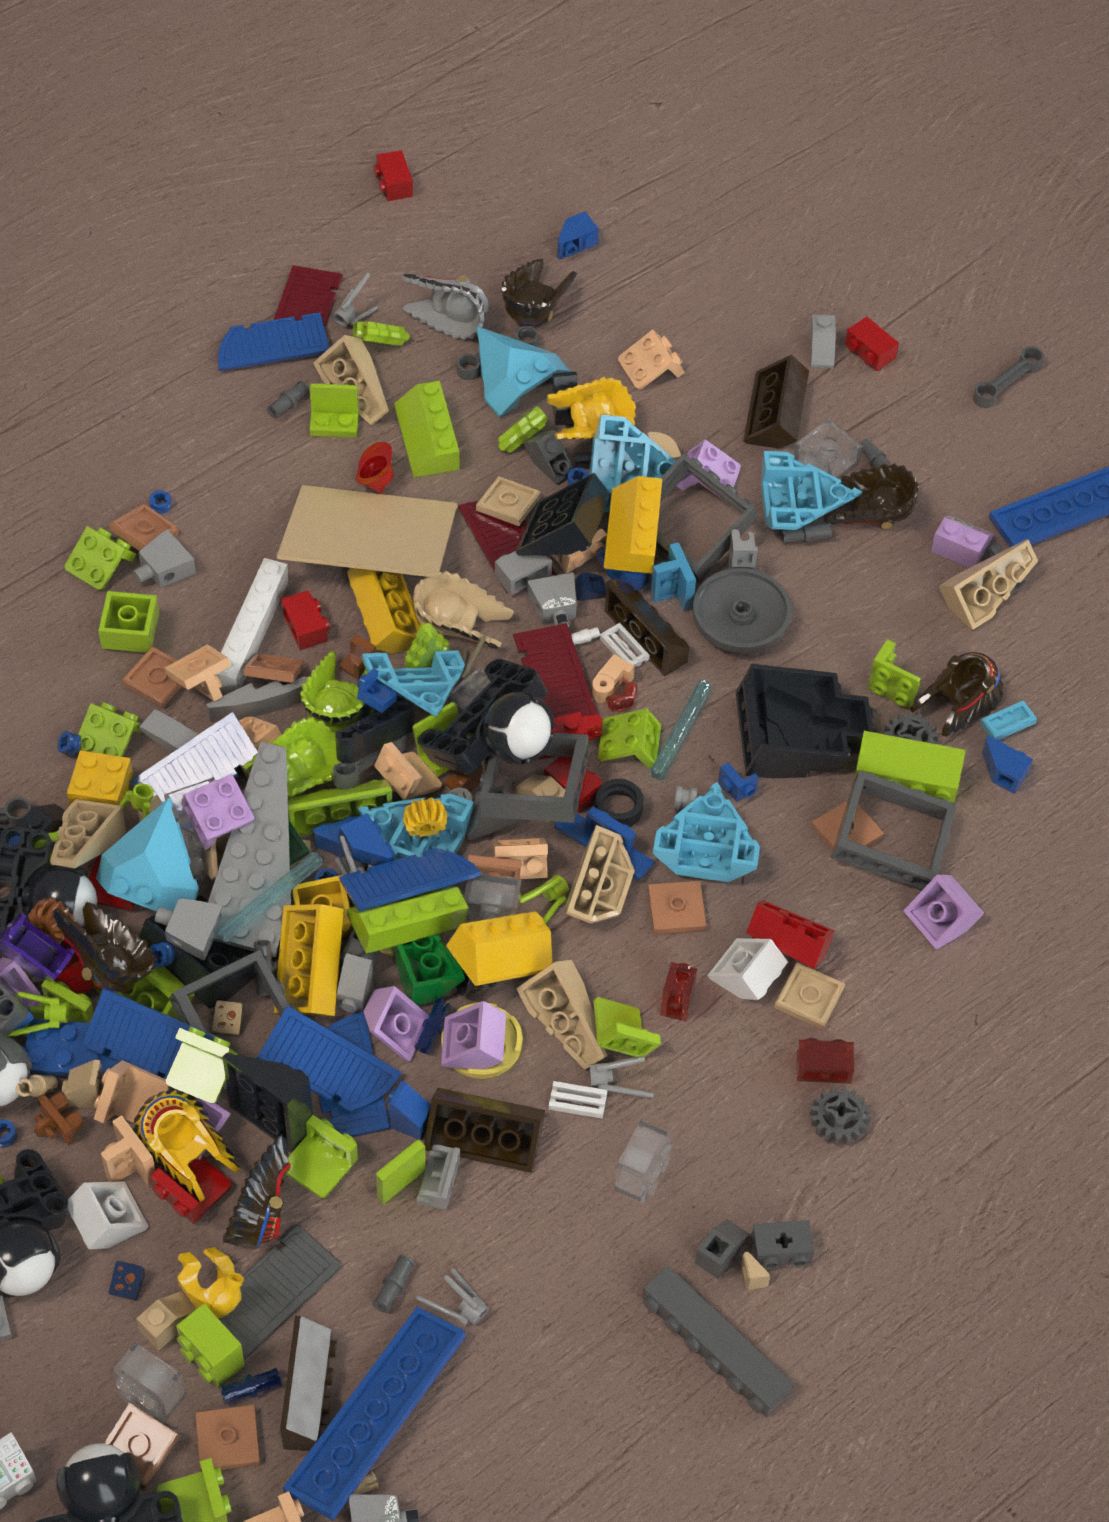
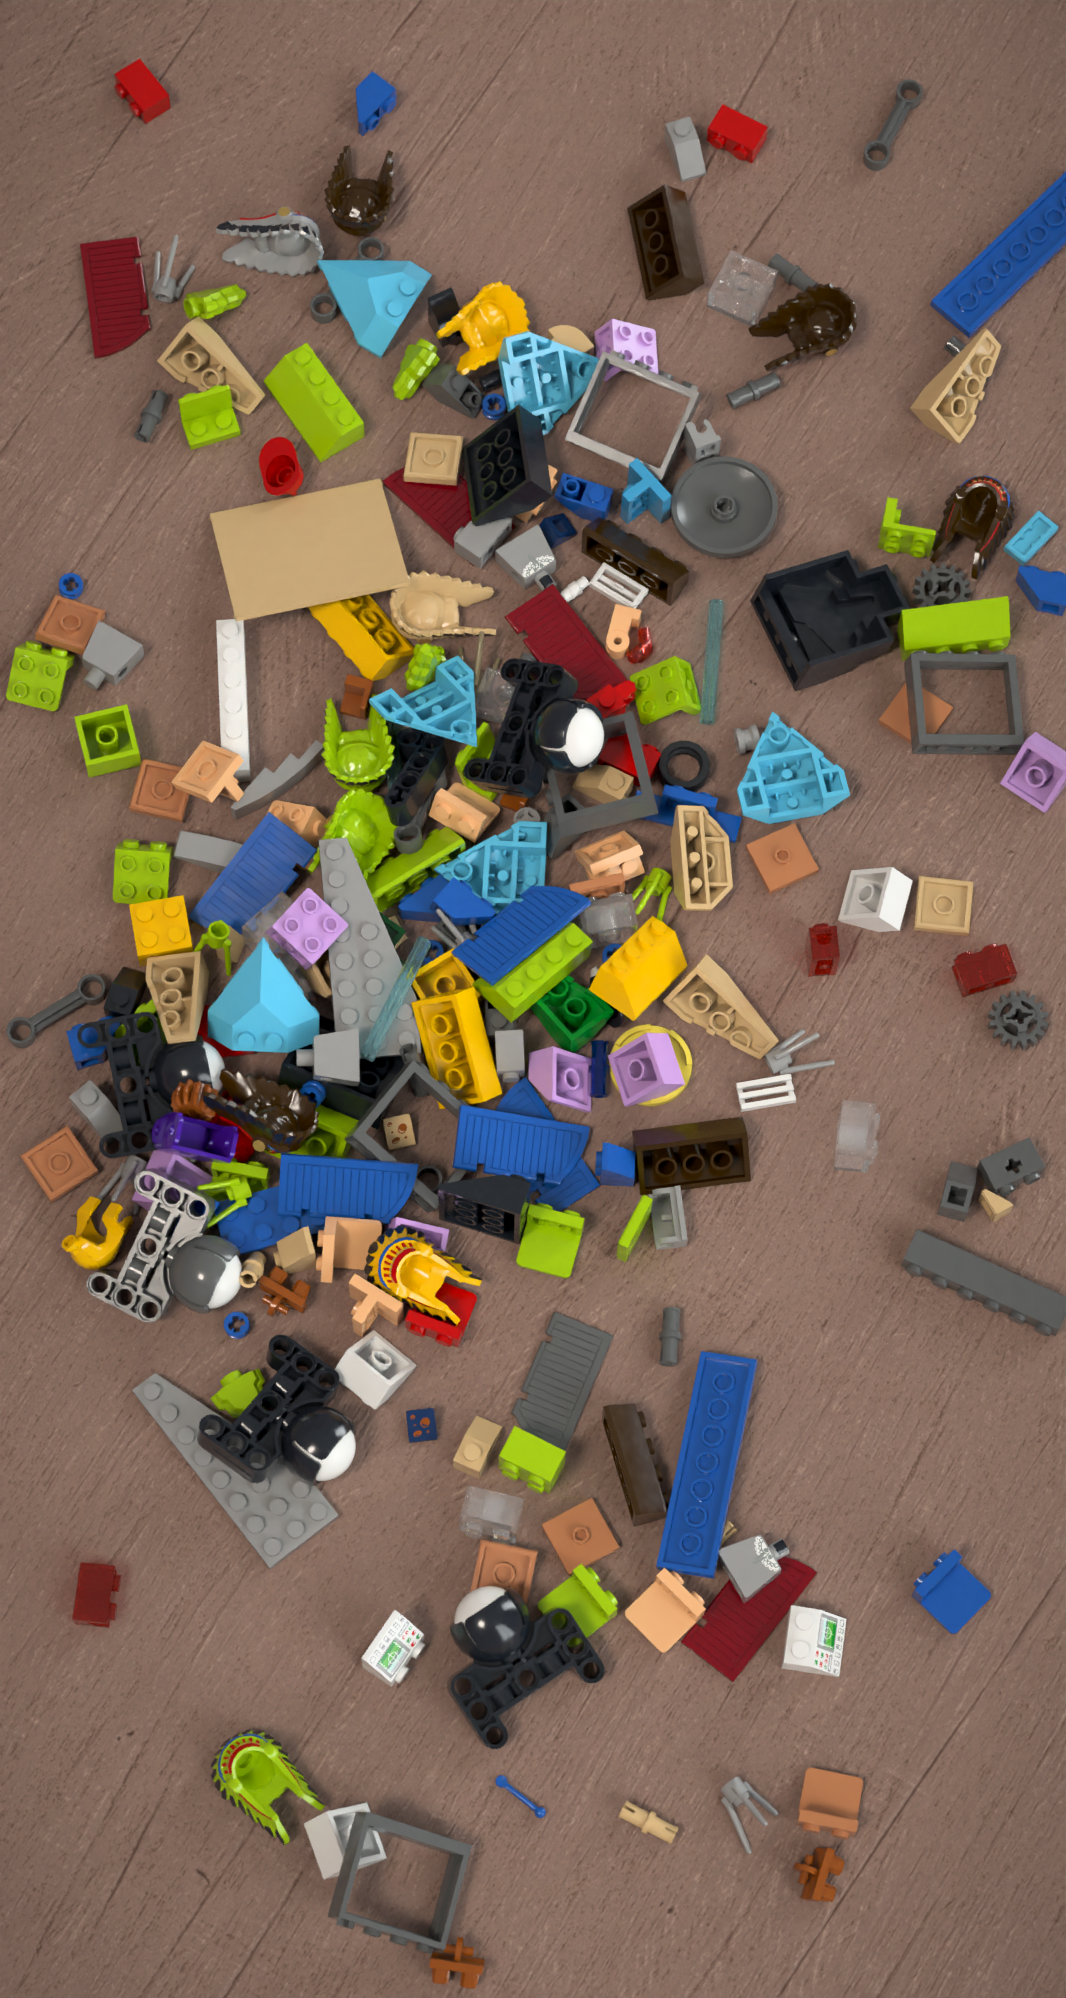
camera: 20 degrees left, 15 degrees up
(69, 743) = (114, 895): blue bush -> none
(199, 1065) = (409, 1198): bracket -> none
(219, 1297) = (520, 1406): yellow piece -> none
(250, 1385) = (580, 1481): clear blue pin -> none
(259, 1205) = (516, 1310): piece -> none
(273, 342) = (103, 349): blue piece -> none
(273, 667) = (278, 740): nougat plate -> none
(305, 620) = (284, 672): red brick -> none
(375, 693) = (401, 739): blue bracket -> none
(425, 817) = (509, 858): yellow gear -> none
(472, 1306) = (751, 1331): light grey plant -> none
(621, 1029) = (780, 1007): lime bracket -> none
(633, 525) = (583, 452): yellow slope -> none
(649, 359) = (513, 235): light nougat bracket -> none
(735, 785) = (786, 705): blue bracket -> none
(791, 933) = (907, 850): red wedge -> none
(798, 492) = (730, 349): medium azure wedge -> none
(961, 541) = (914, 344): lavender slope -> none

